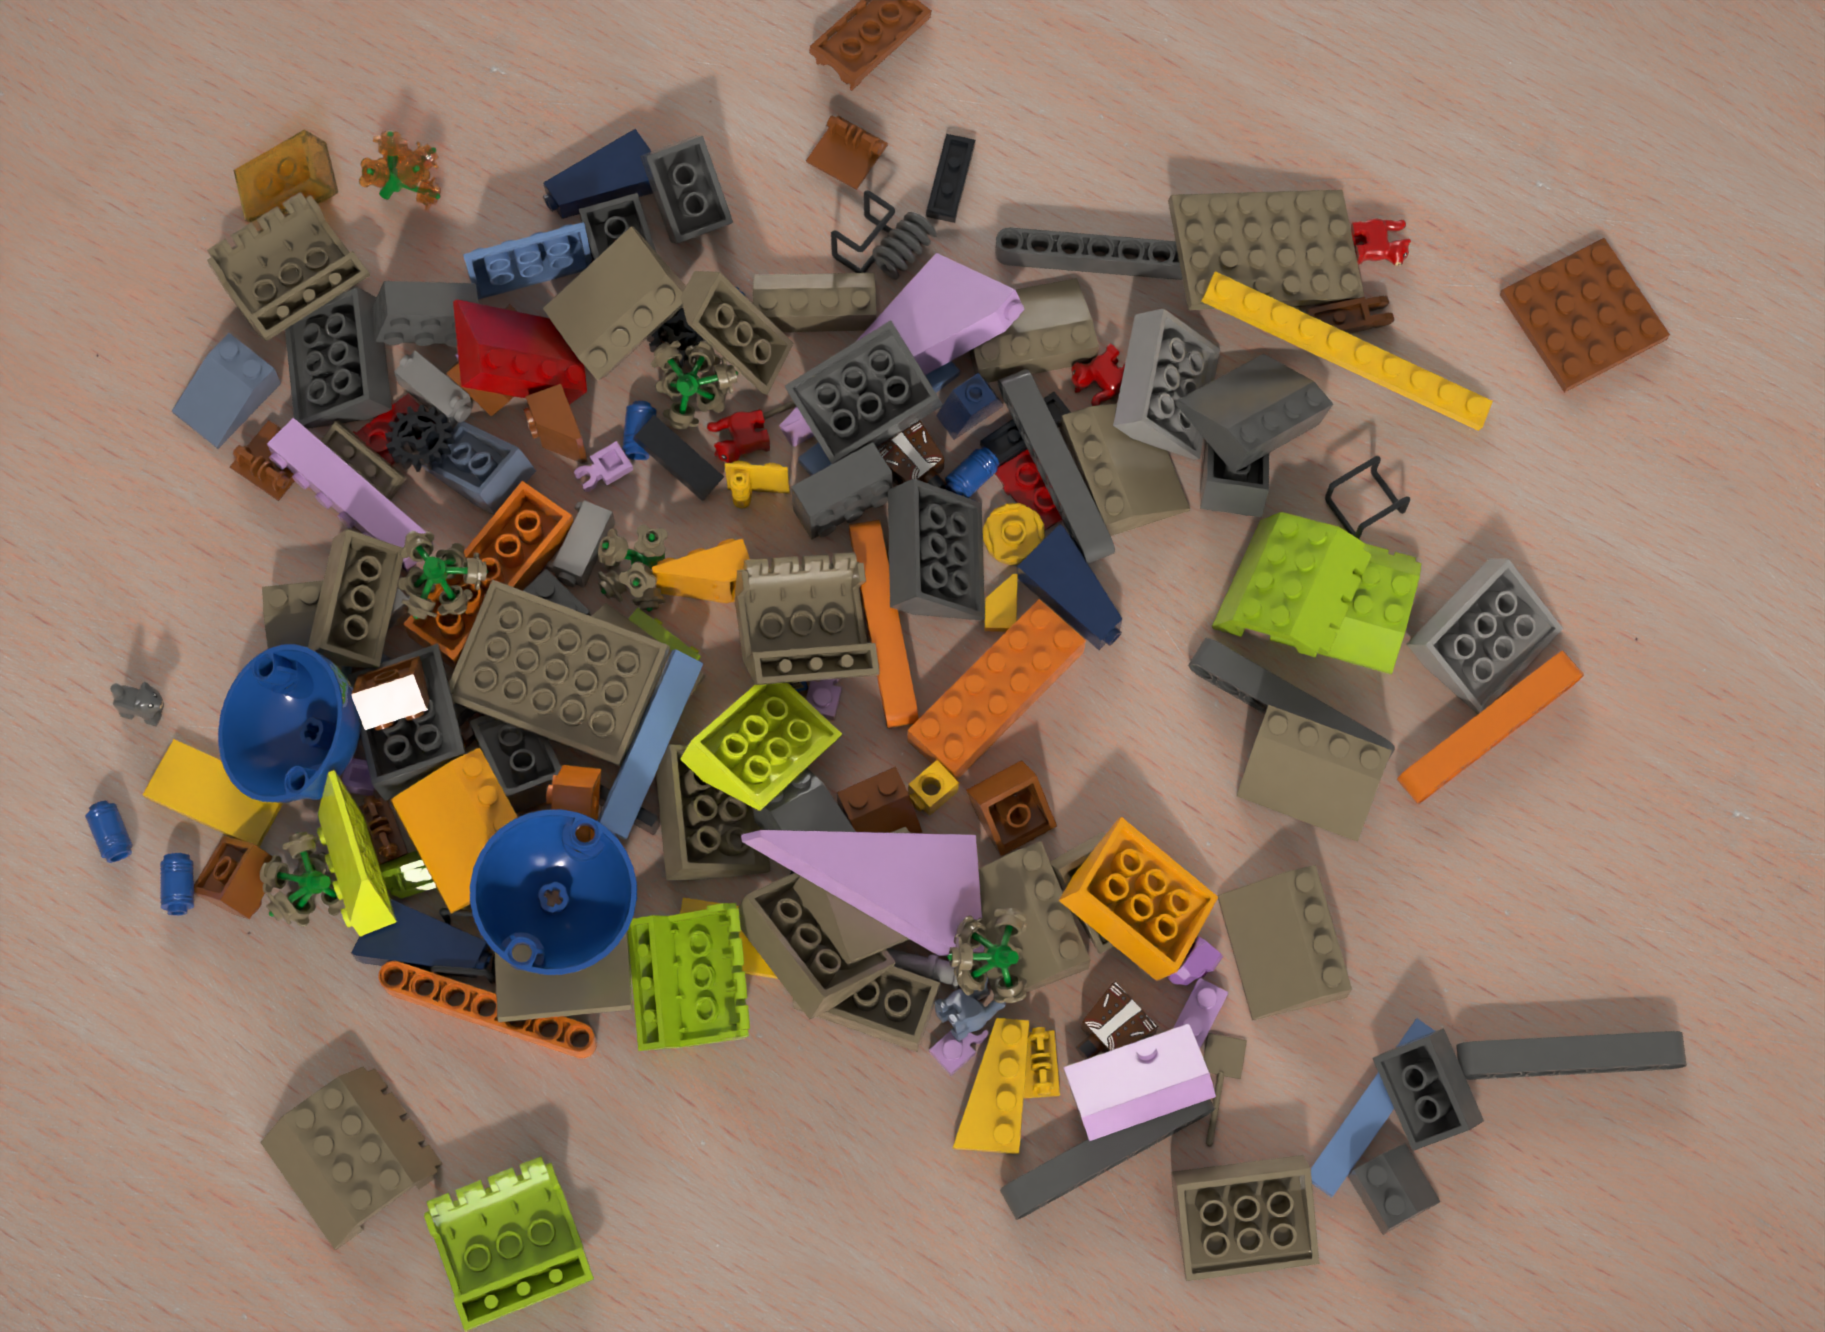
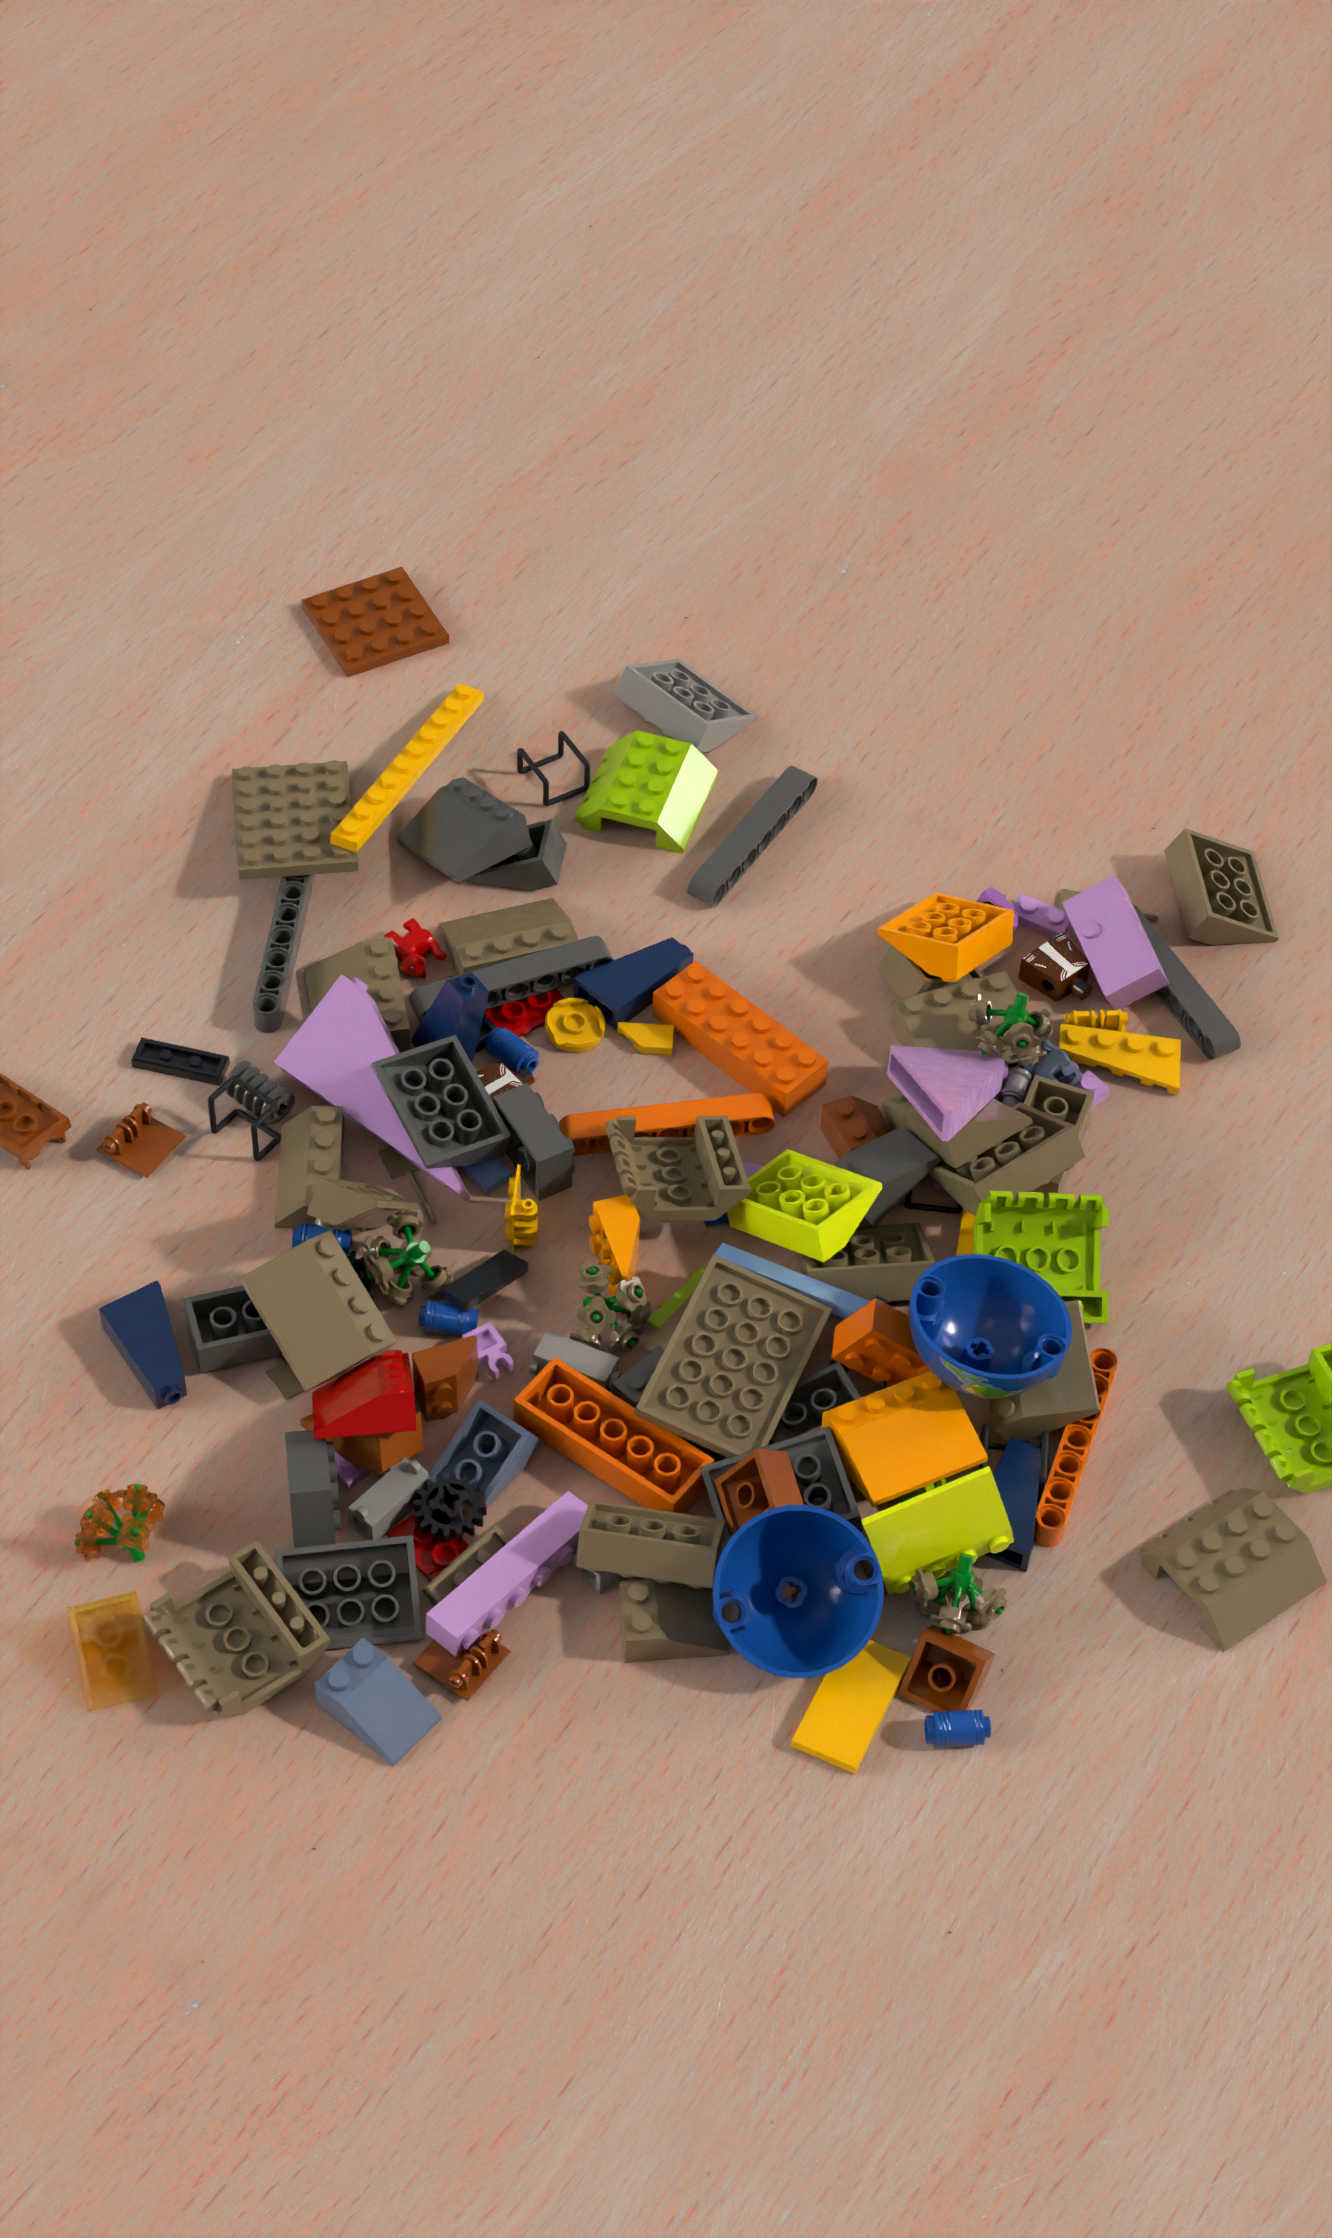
camera: 90 degrees left, 20 degrees down
(109, 831) = (899, 1798): blue head -> none
(139, 702) = (754, 1766): dark grey animal -> none
(435, 571) = (640, 1447): dark tan plant -> none
(529, 260) = (242, 1403): medium blue slope -> none
(686, 189) = (182, 1256): dark grey brick -> none
(742, 430) = (460, 1231): red animal -> none
(935, 552) = (599, 1076): dark grey slope -> none
(936, 775) = (834, 1084): yellow brick -> none
(1012, 807) = (851, 1033): dark orange slope -> none
(1160, 367) = (430, 896): light grey slope -> none
(1285, 943) = (975, 849): dark tan slope -> none
(1294, 582) = (638, 819): lime slope -> none
(1313, 773) = (820, 814): dark tan slope -> none
(1354, 314) = (363, 769): reddish brown hinge -> none
(1358, 1128) = (1108, 804): medium blue tile -> none
(1376, 244) = (291, 748): red animal -> none
(1393, 1188) = (1189, 799): dark grey slope -> none
(1428, 1089) = (1102, 763): dark grey slope -> none
(1490, 727) = (772, 707): orange beam -> none
(1572, 1055) = (1063, 681): dark grey beam -> none

